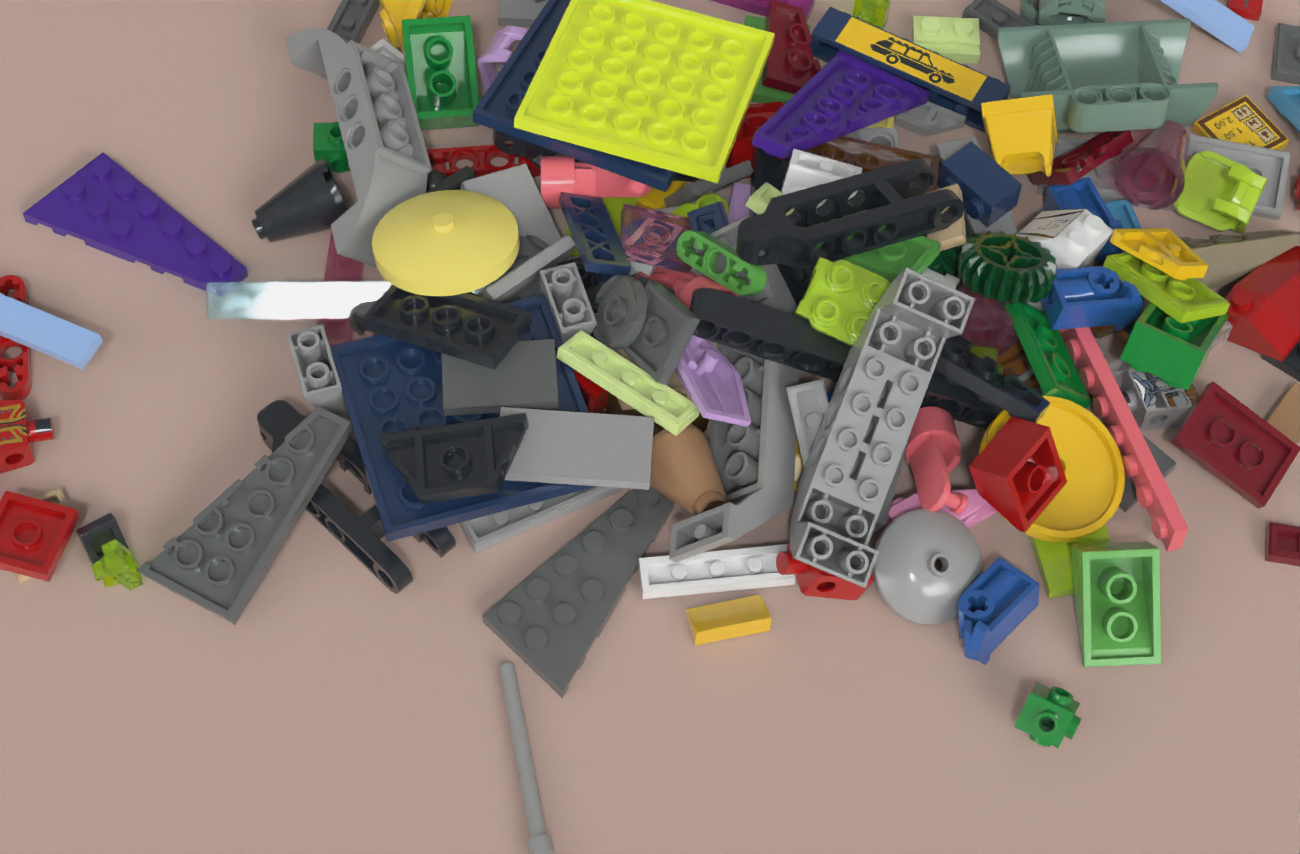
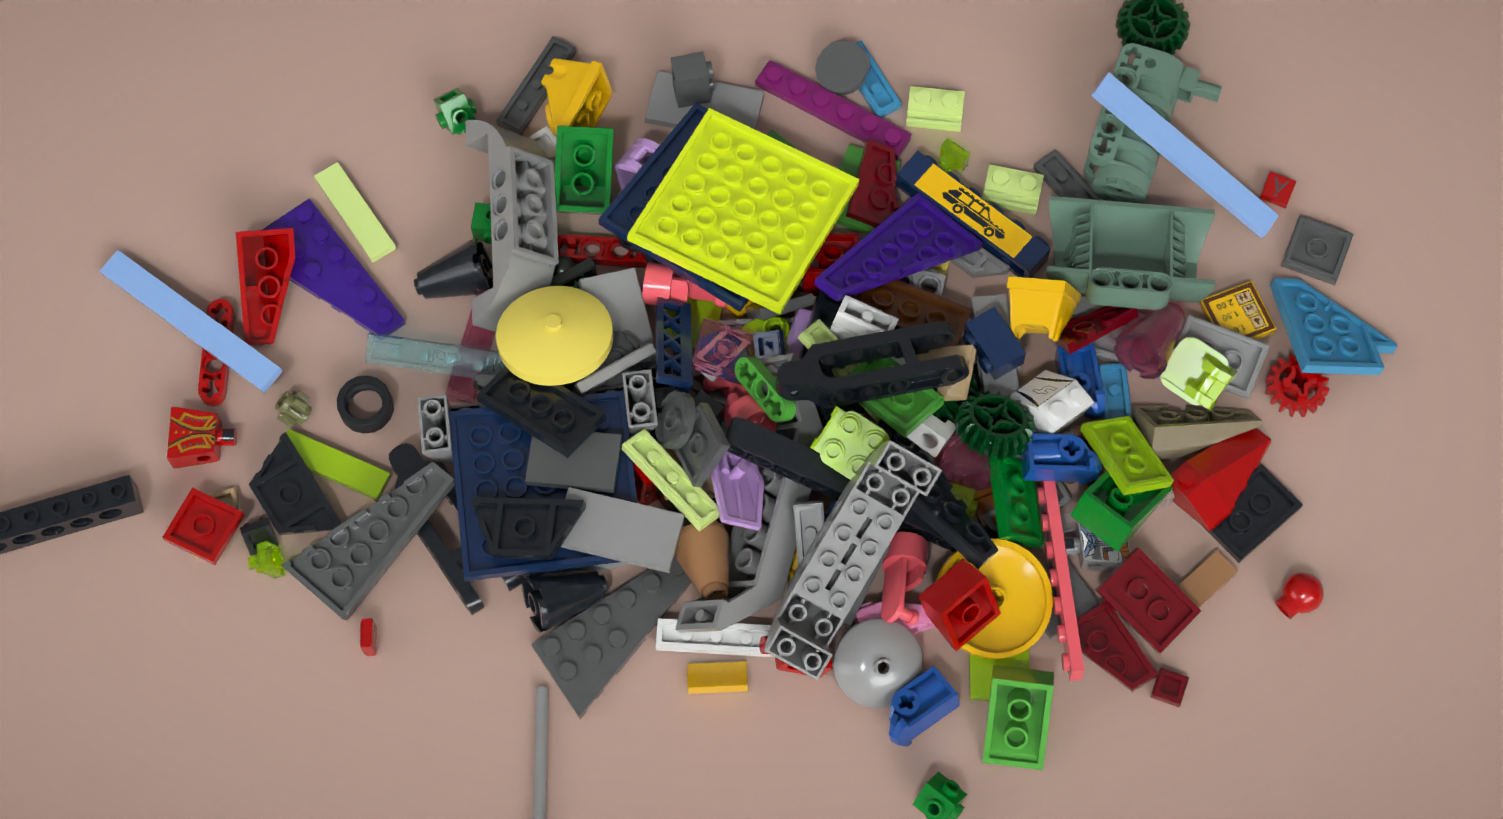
camera: 15 degrees right, 10 degrees up
(60, 236) = (264, 276): none -> red wedge
(122, 383) = (293, 408): none -> olive gear
(137, 482) = (291, 493): none -> black wing
(163, 161) = (355, 212): none -> yellowish green tile
(183, 444) = (340, 466): none -> lime tile
(207, 346) = (359, 384): none -> black tyre
(267, 35) = (454, 111): none -> green brick
(267, 638) = (368, 637): none -> red tile
(507, 549) = (561, 595): none -> black cone
(1161, 250) = (1129, 424): yellow wing -> none
(1211, 509) = (1113, 648): none -> dark red wing

